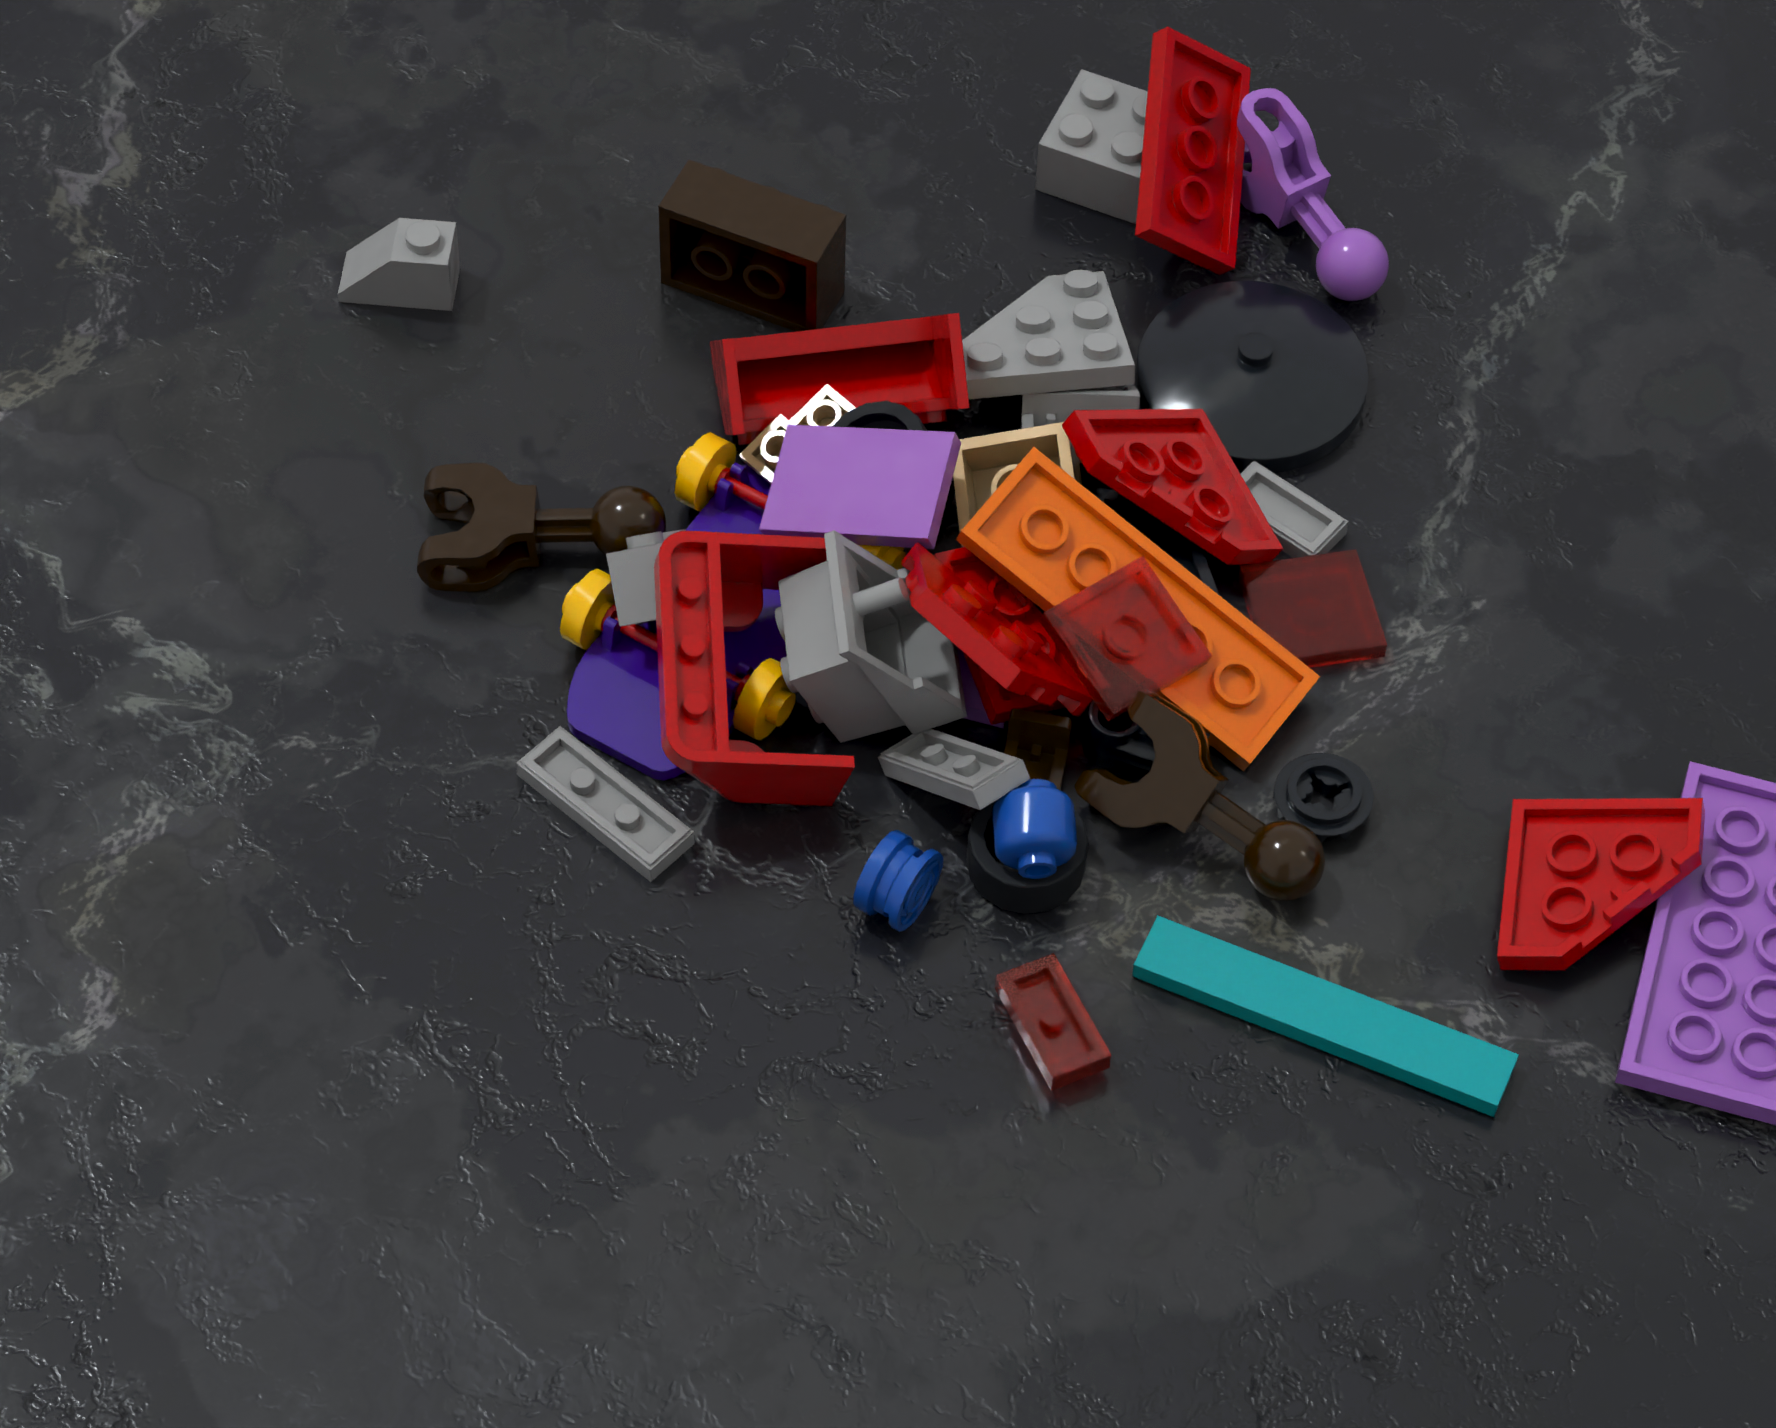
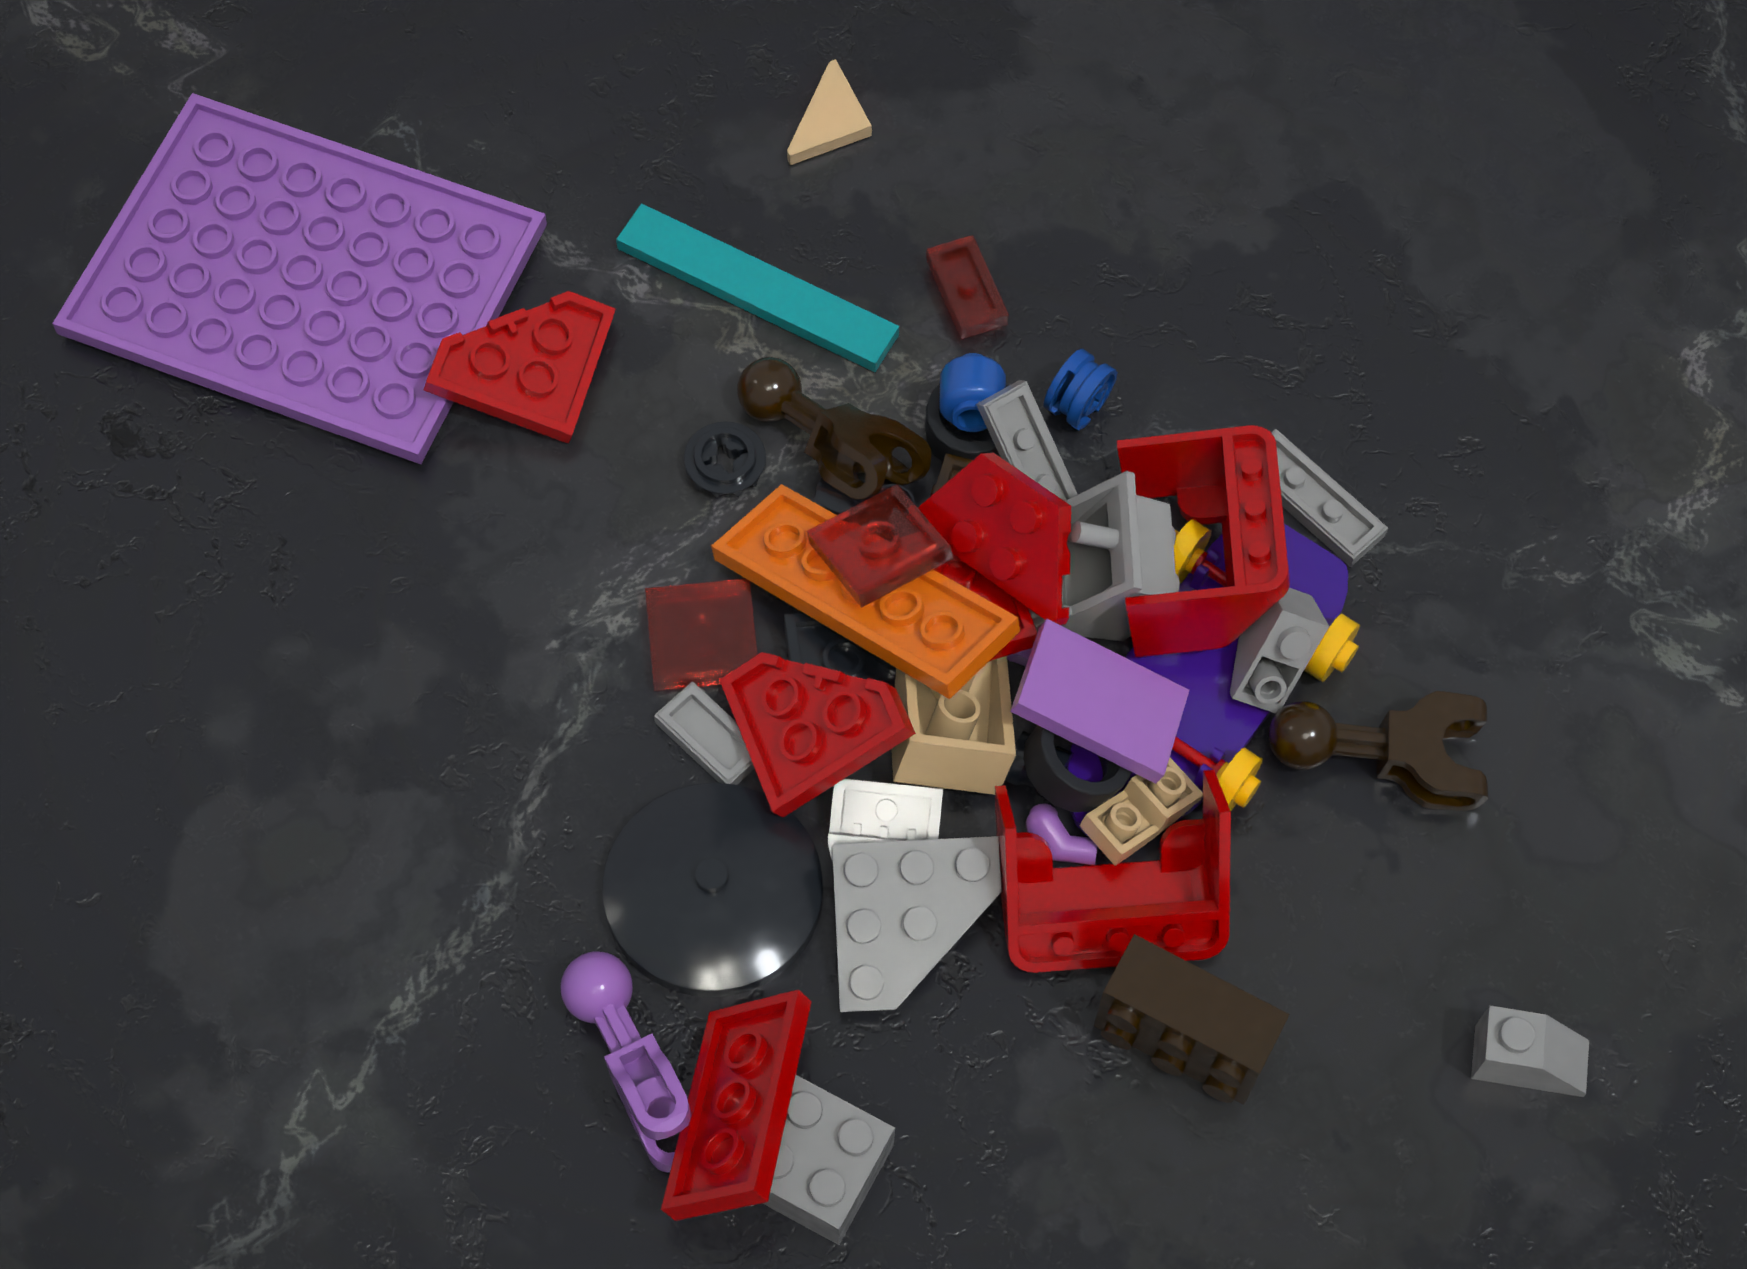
camera: 175 degrees left, 10 degrees up
(1264, 1258) = (831, 118): none -> tan tile

